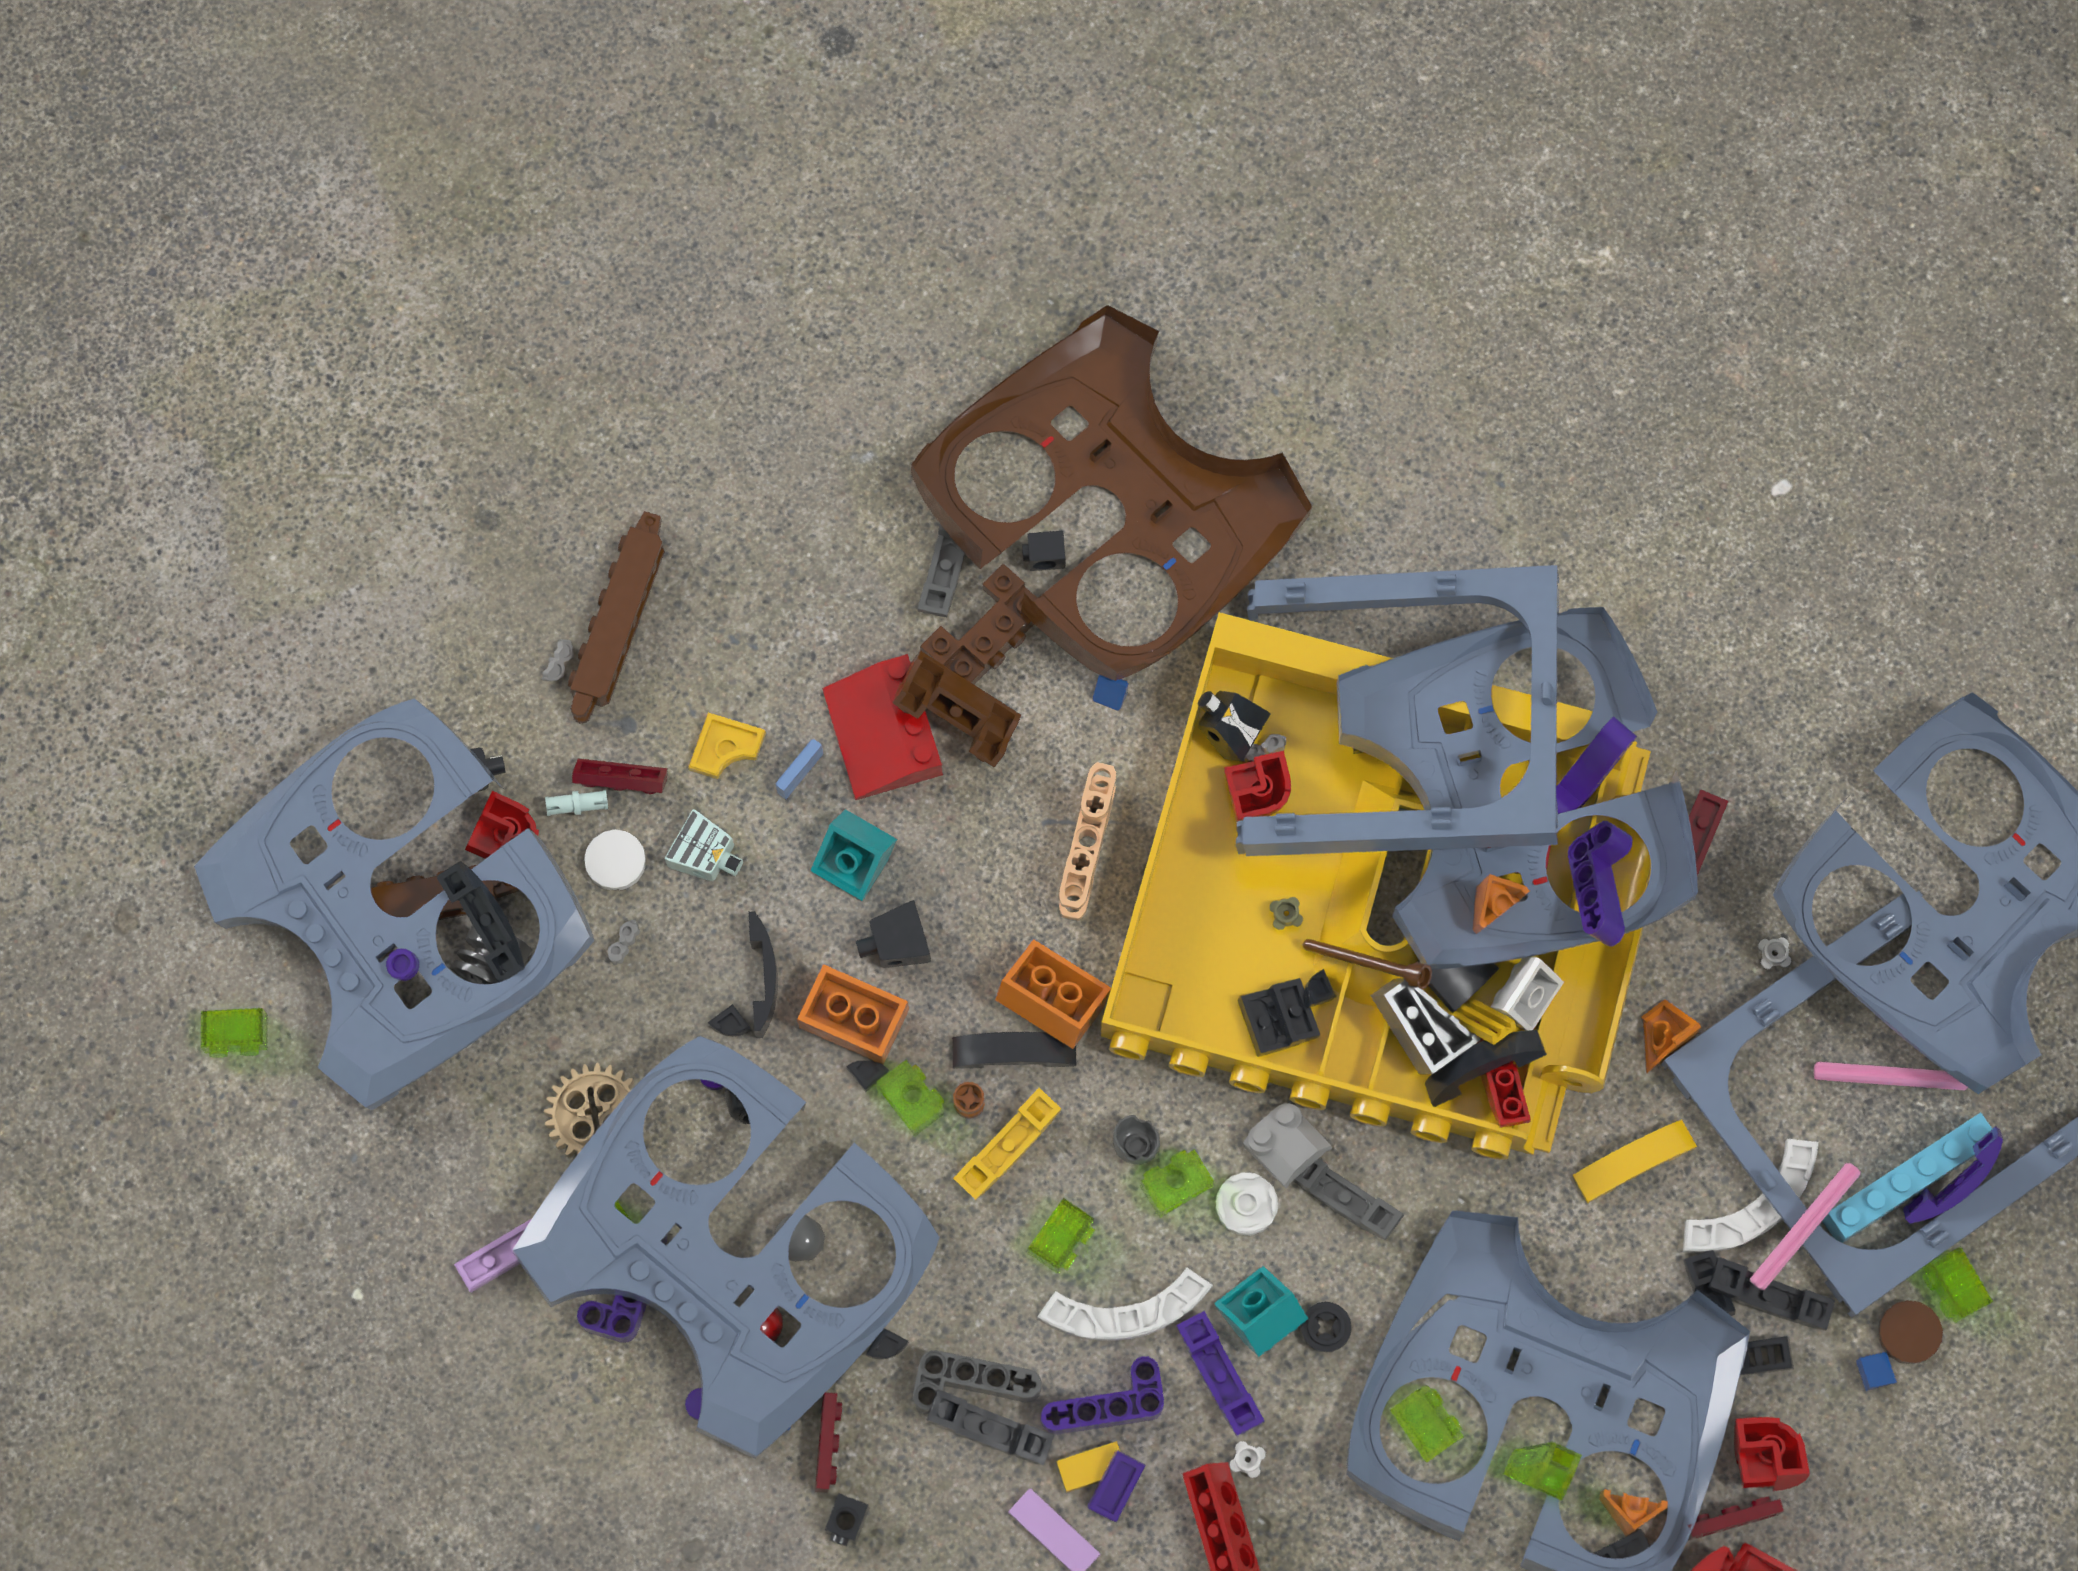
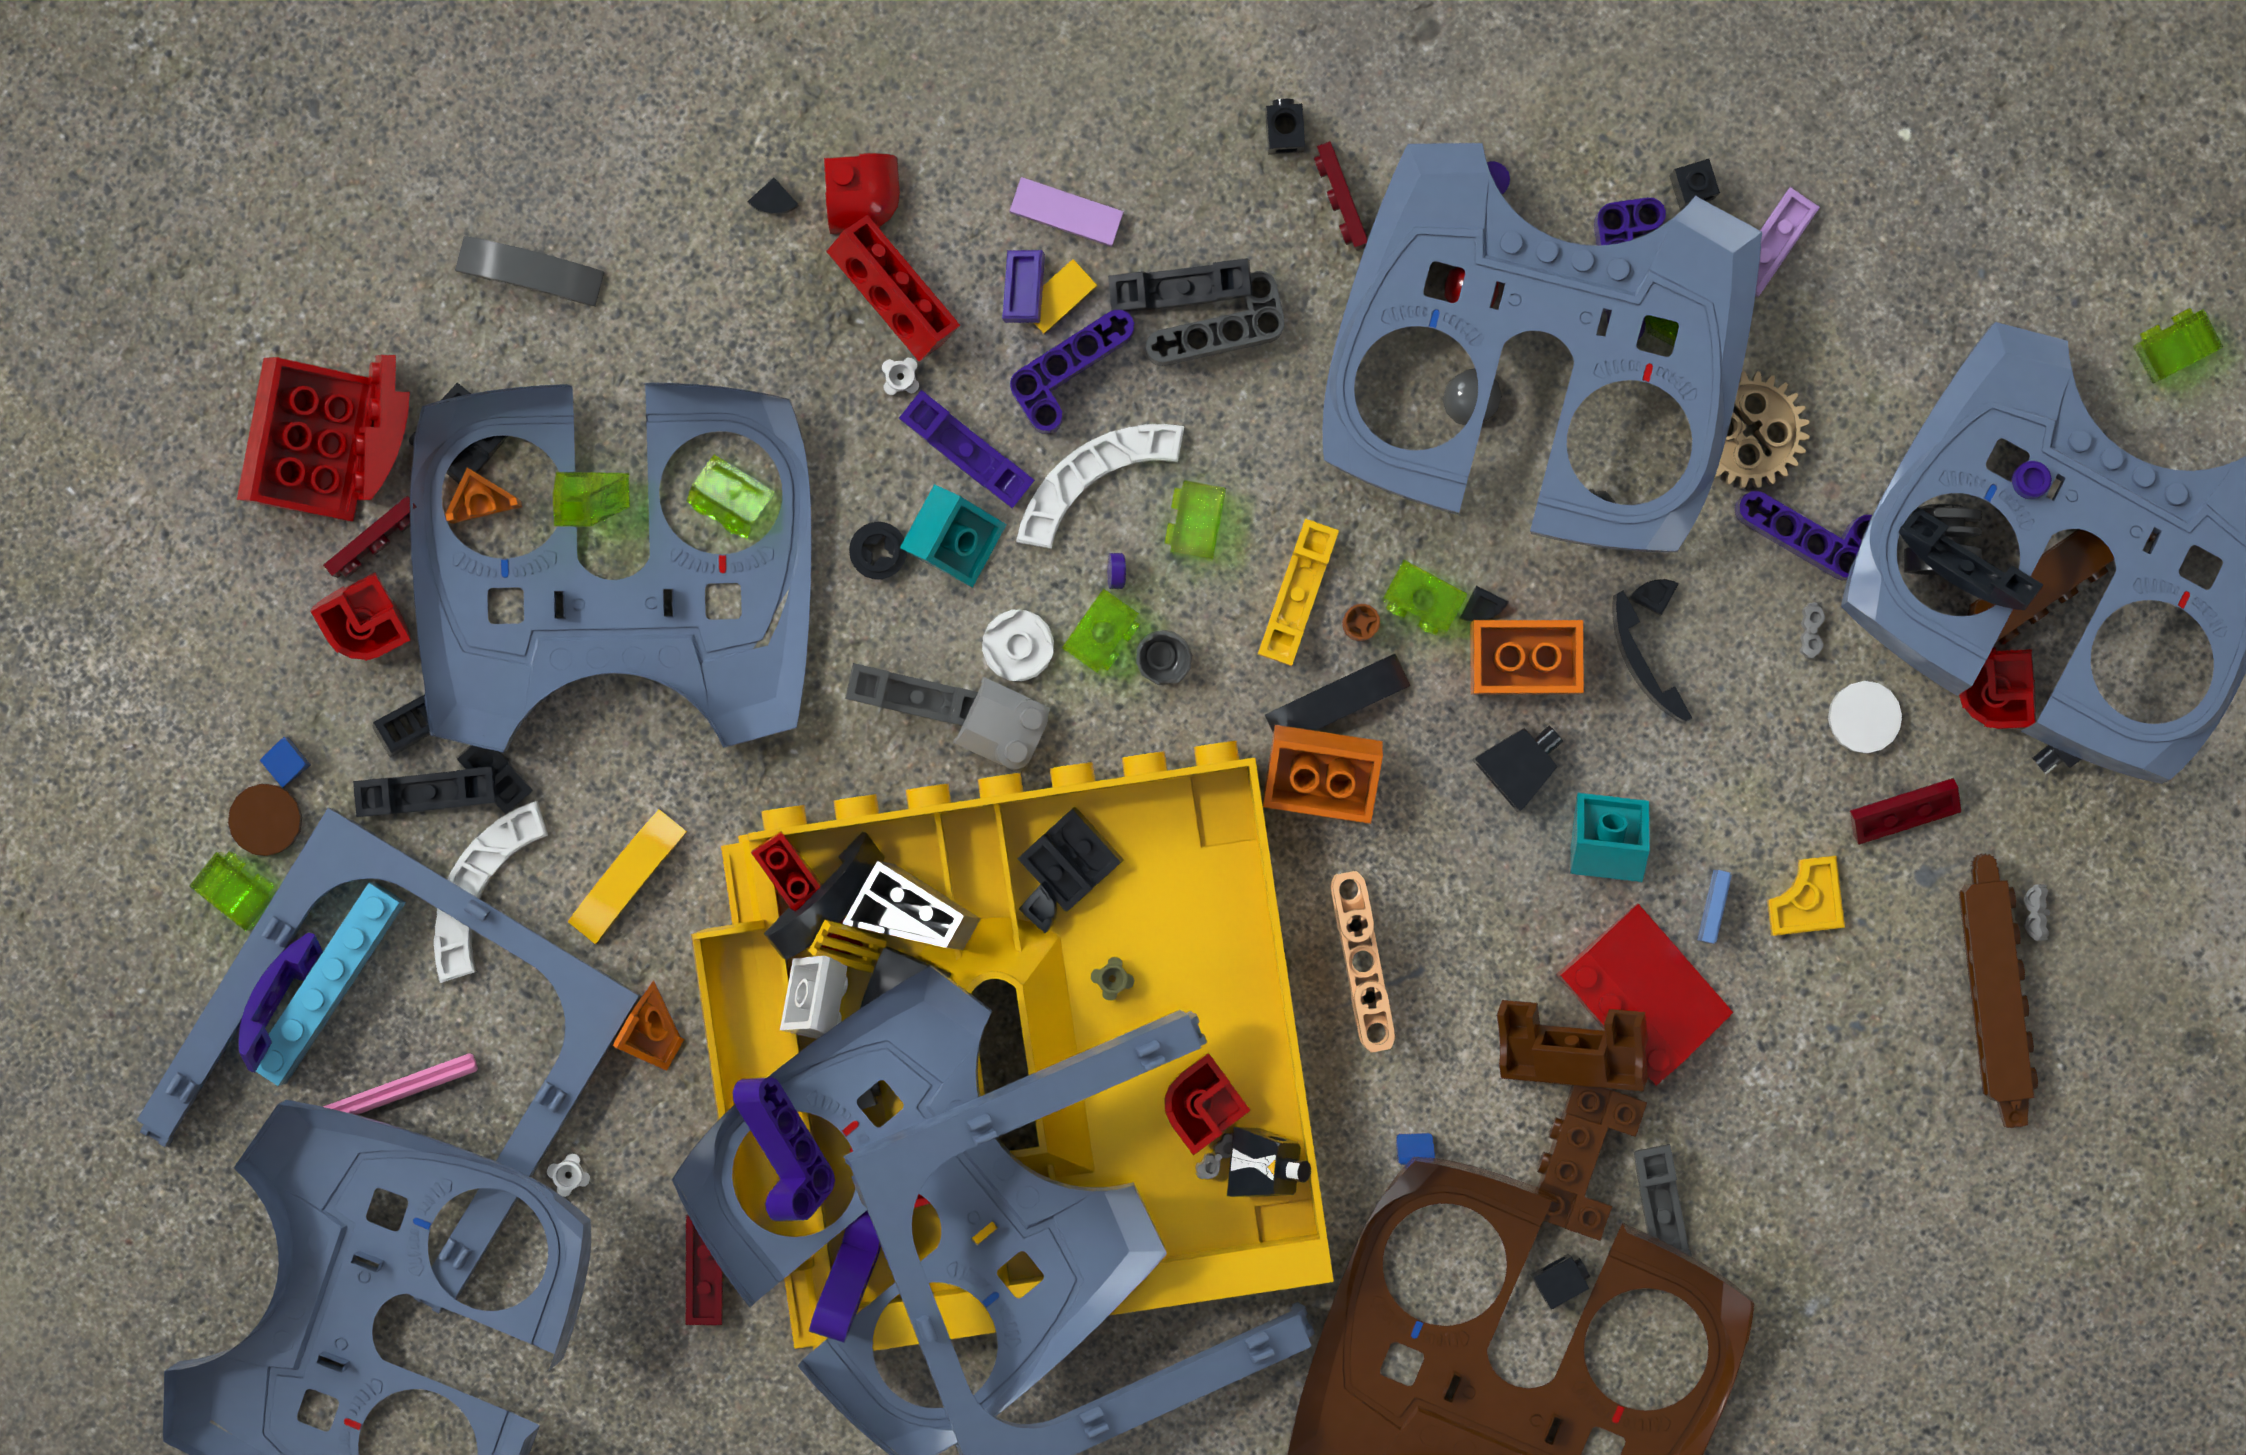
camera: 150 degrees right, 15 degrees up
(543, 1325) = (1694, 180): none -> black brick
(576, 802) = (1937, 760): light aqua pin -> none
(593, 1017) = (1802, 529): none -> dark purple beam
(702, 849) = (1775, 769): light aqua torso -> none
(886, 1345) = (1326, 327): black tile -> none
(1143, 1225) = (1116, 570): none -> dark purple tile
(1416, 974) = (938, 951): reddish brown piece -> none
(1494, 898) = (890, 1073): orange slope -> none
(1805, 1226) = (416, 876): bright pink axle -> none

